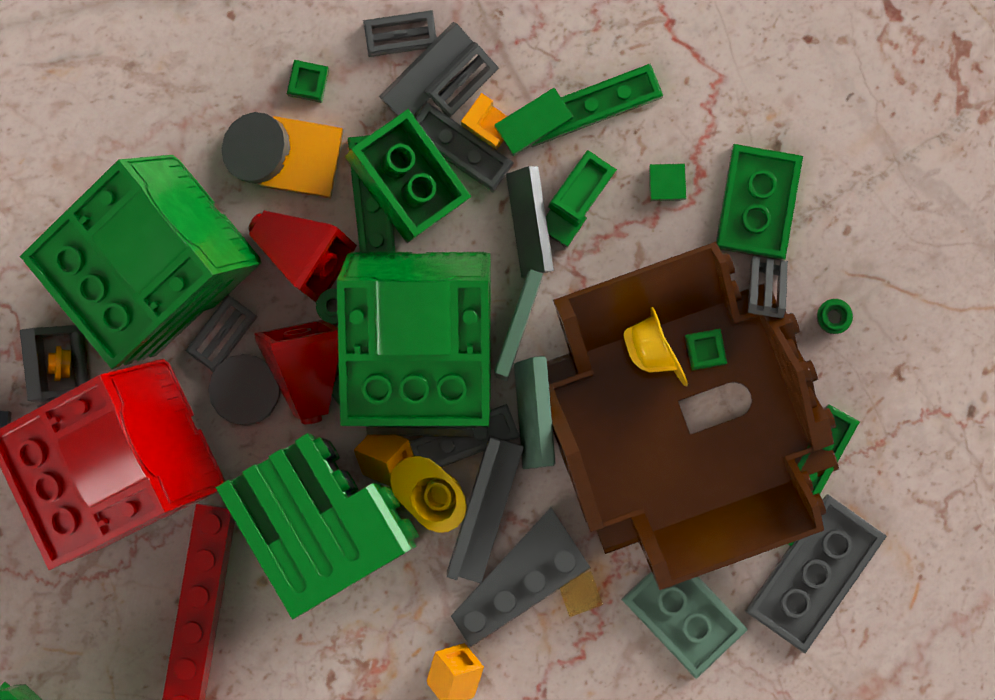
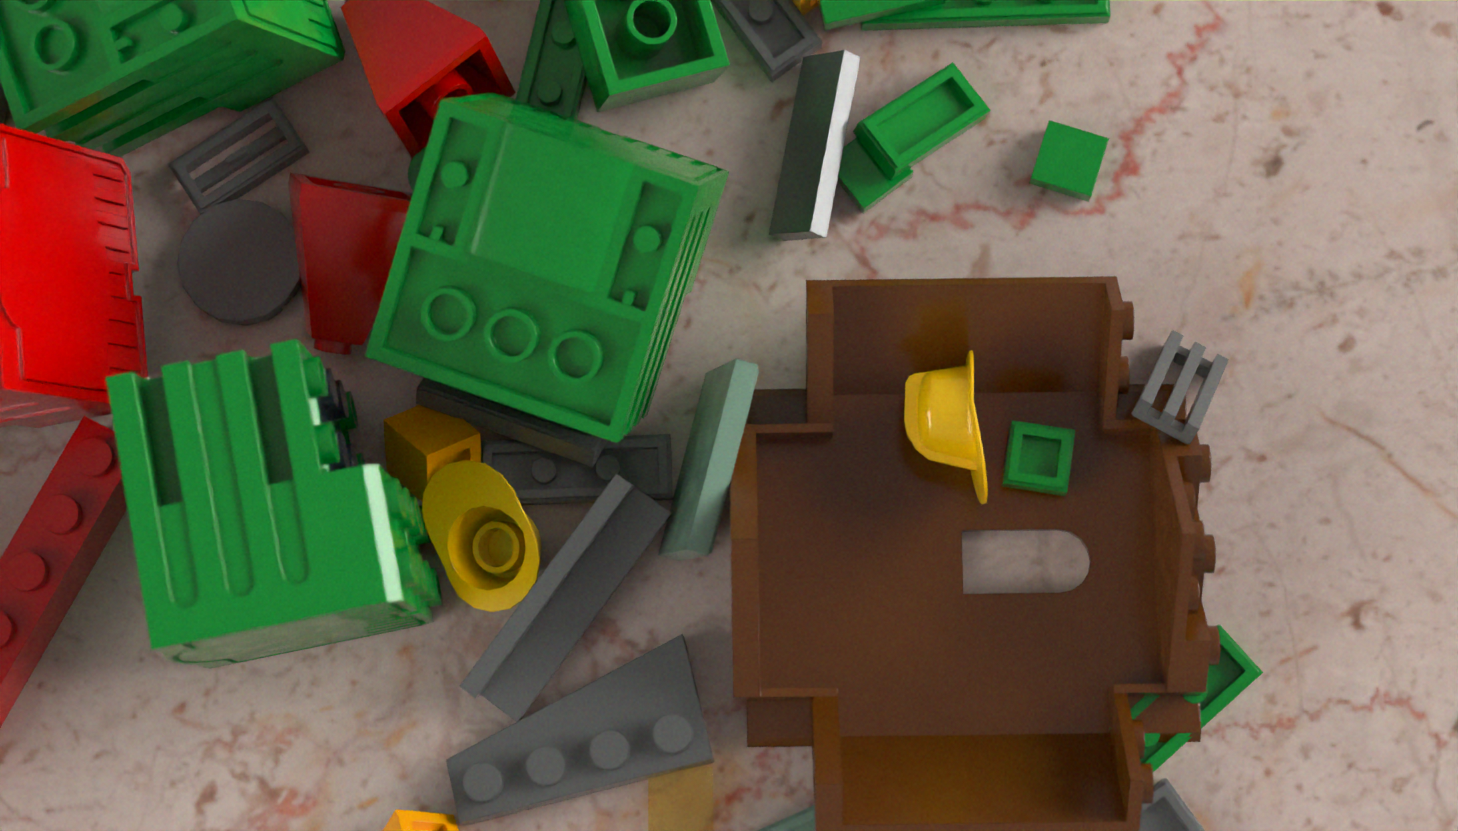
camera: 20 degrees right, 5 degrees down
(518, 325) = (733, 305): sand green tile -> none
(759, 202) = (1213, 245): green tile -> none
(844, 311) = (1292, 465): green plate -> none

